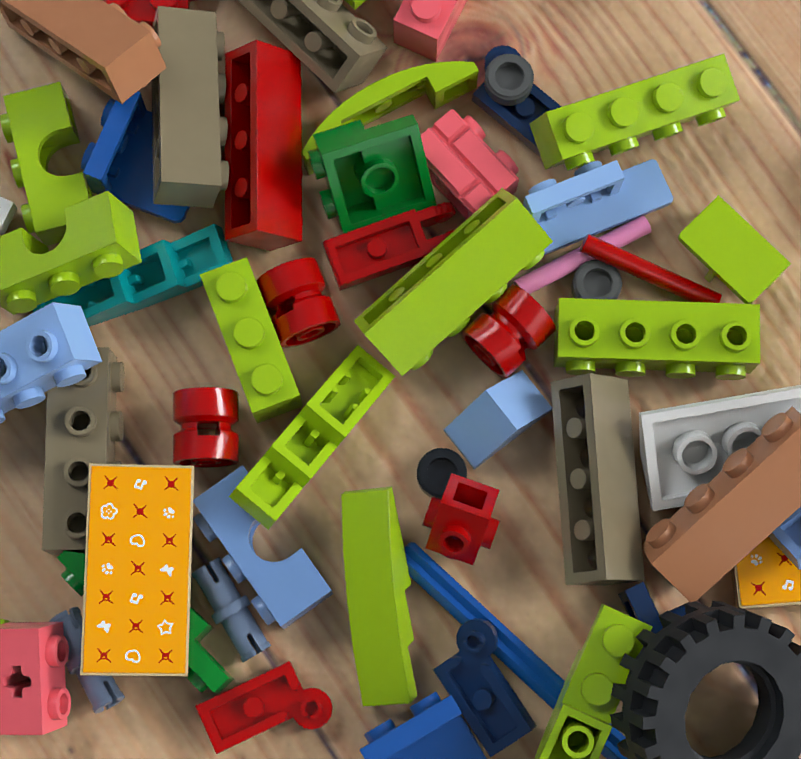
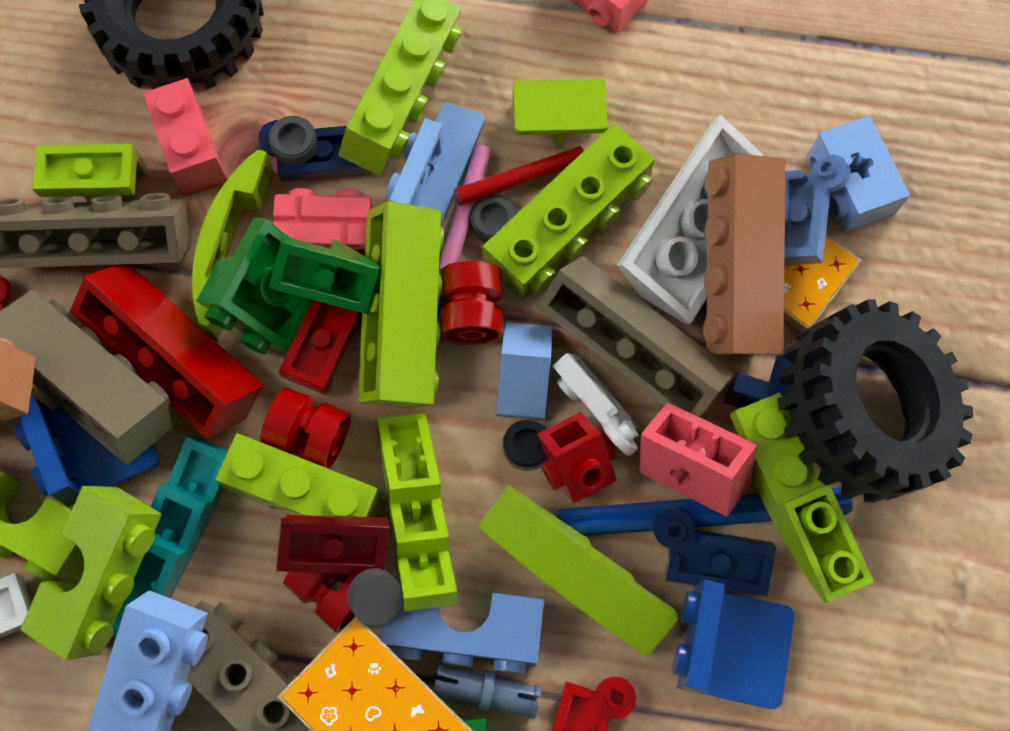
camera: 50 degrees left, 5 degrees down
(219, 466) = (374, 597): none -> dark grey tile
(227, 401) = (332, 544): none -> dark red plate
(423, 212) = (325, 274): none -> green slope
(521, 511) = (608, 414): none -> white hinge
(543, 609) = (697, 458): none -> coral brick

